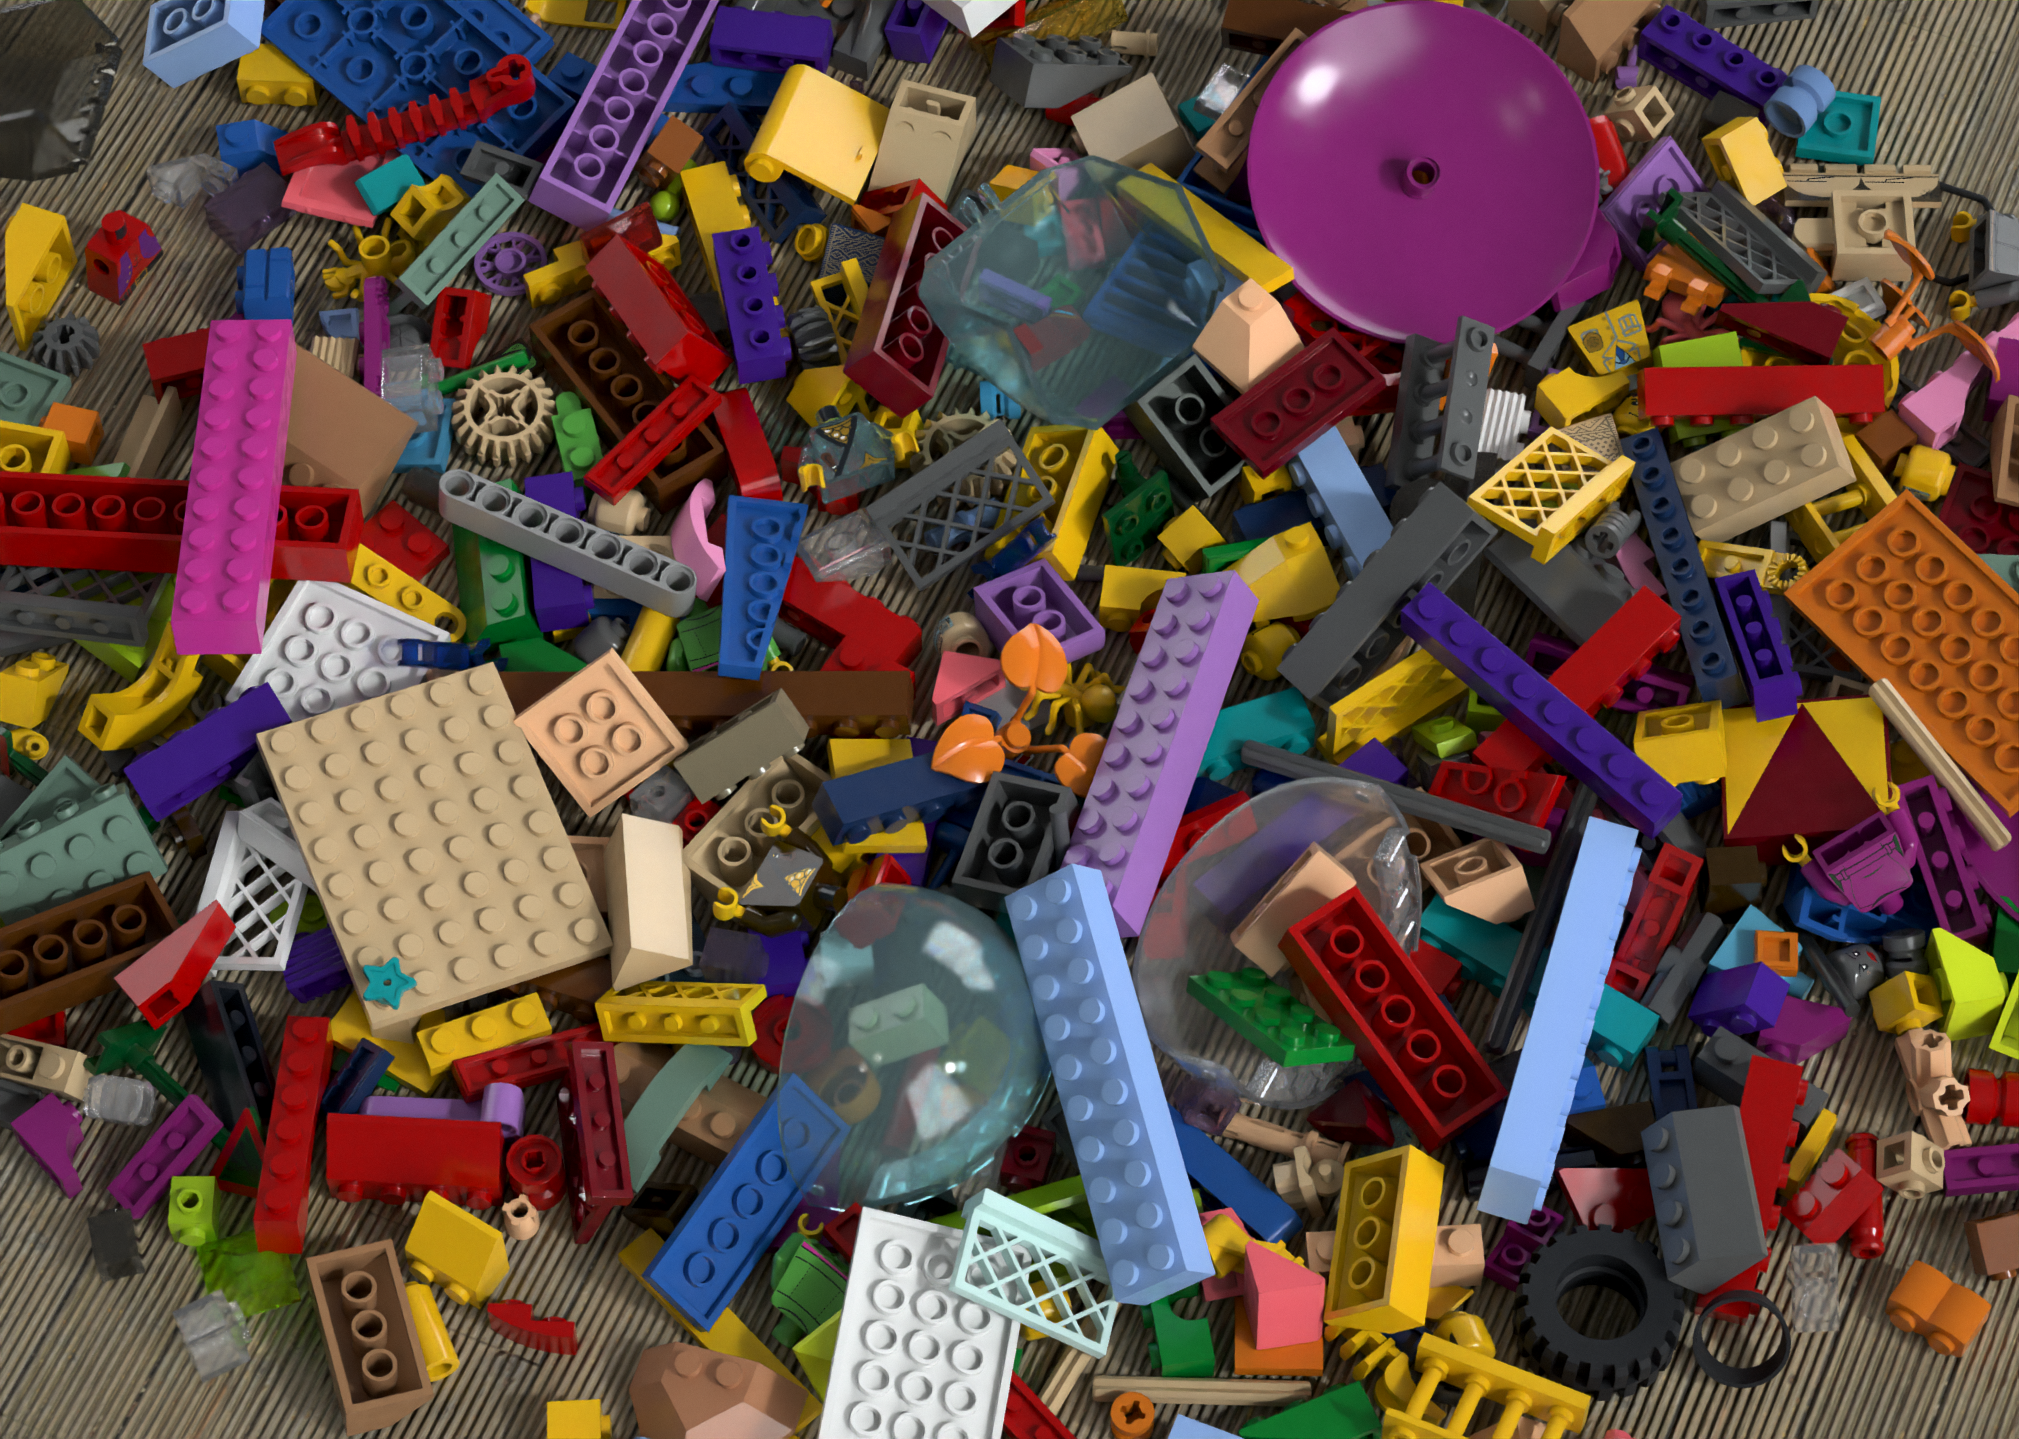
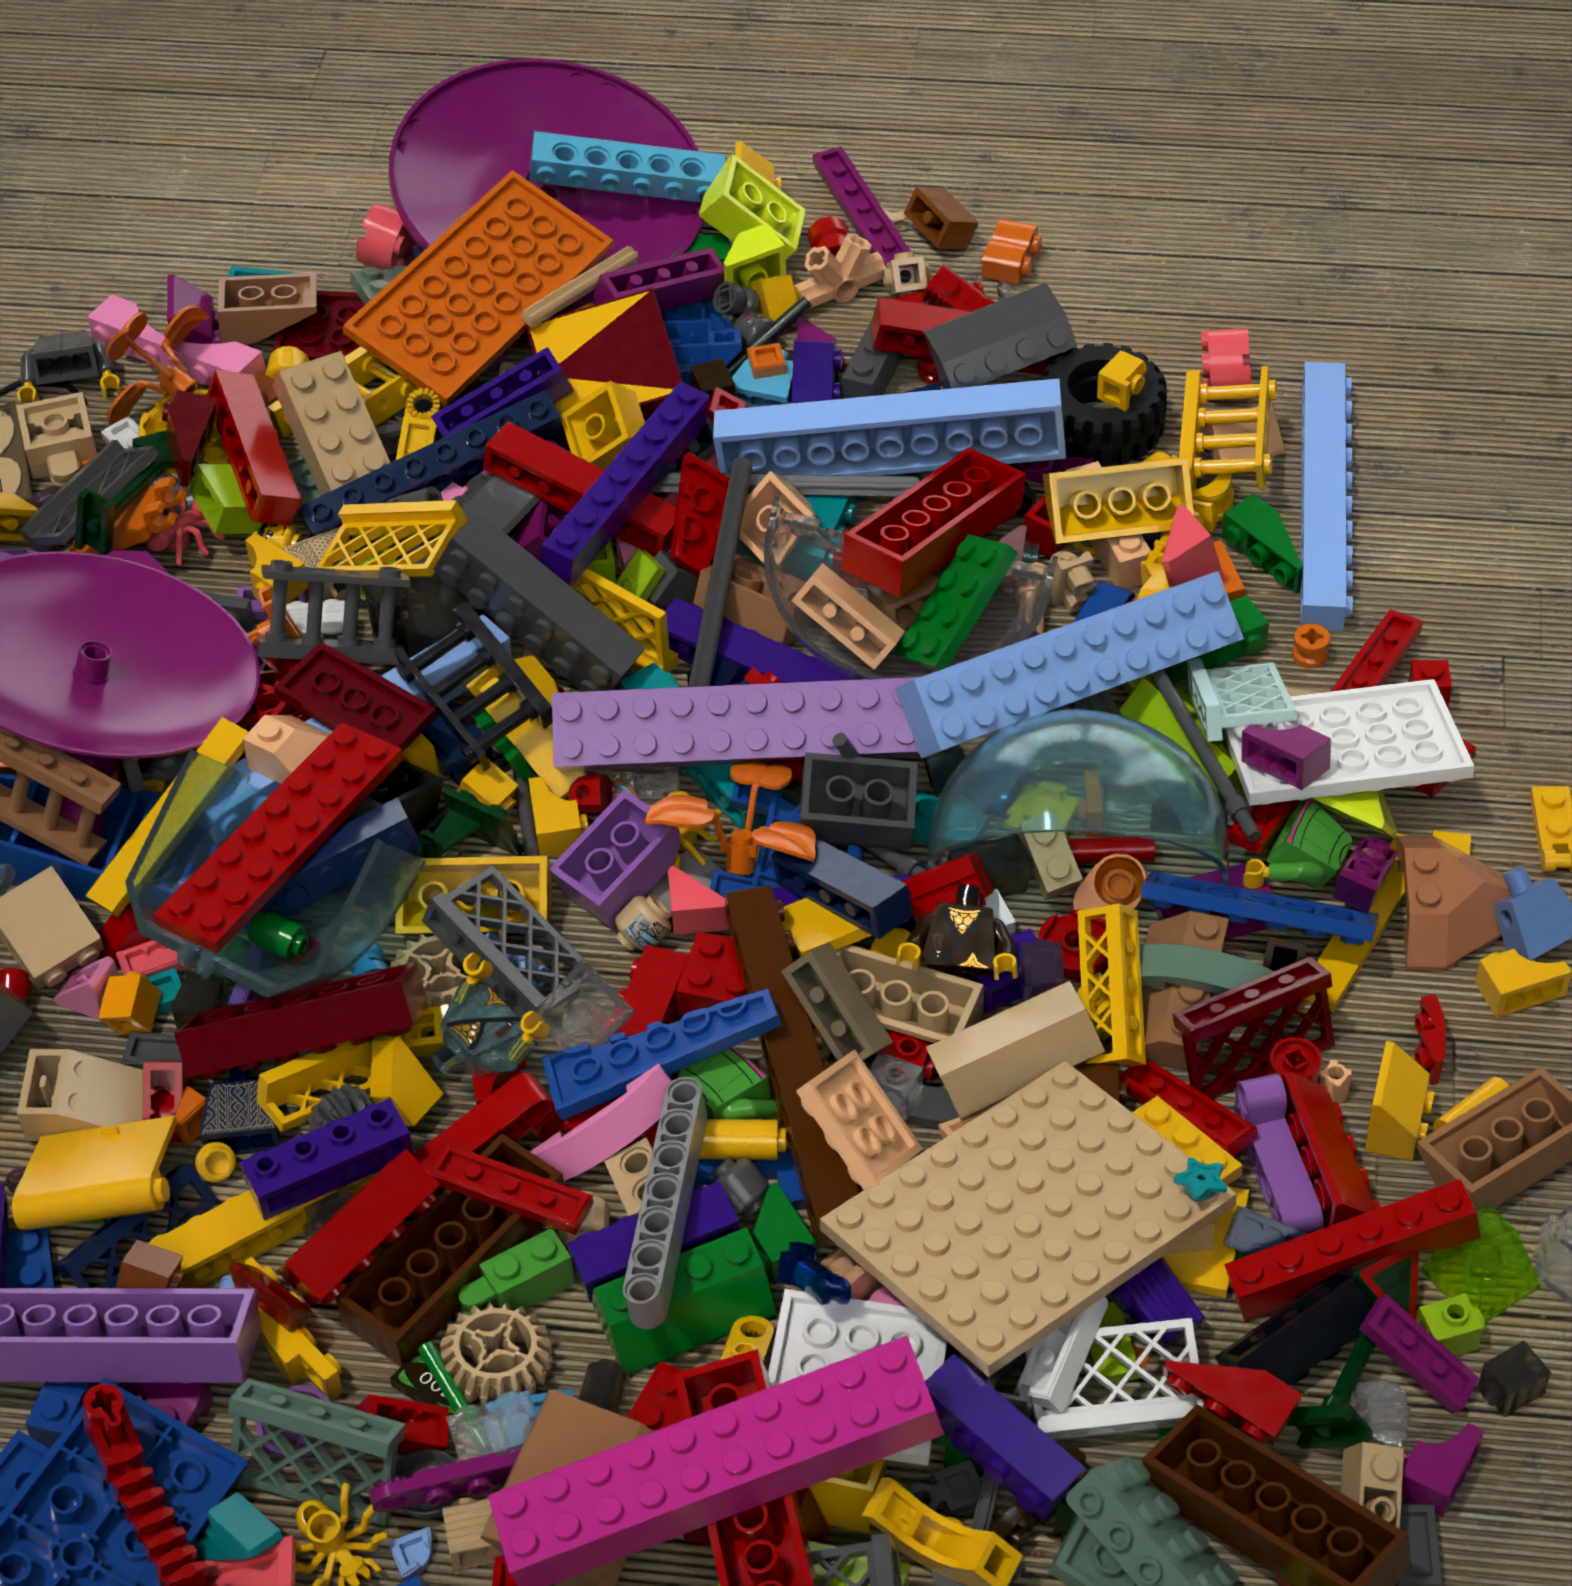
camera: 105 degrees left, 10 degrees down
(428, 209) = (266, 1486): yellow brick -> none
(515, 169) = (208, 1417): dark grey slope -> none
(744, 1316) = (1365, 873): none -> magenta slope
(887, 1258) = (1288, 754): none -> magenta arch
(955, 1206) = (1236, 805): none -> dark grey bar
(1016, 553) = (574, 918): clear blue piece -> none
(1032, 306) = (278, 935): none -> green brick
(1090, 358) = (344, 854): none -> dark blue brick
(1119, 298) = (278, 838): none -> red plate
(1203, 1390) = (1277, 638): tan axle -> none
(1299, 539) = (490, 654): none -> black fence
(1578, 1301) = (1121, 380): none -> yellow brick
(1613, 342) = (209, 561): yellow torso -> none
(1734, 1376) = (1082, 308): black tyre -> none
(1866, 862) = (683, 300): magenta torso -> none

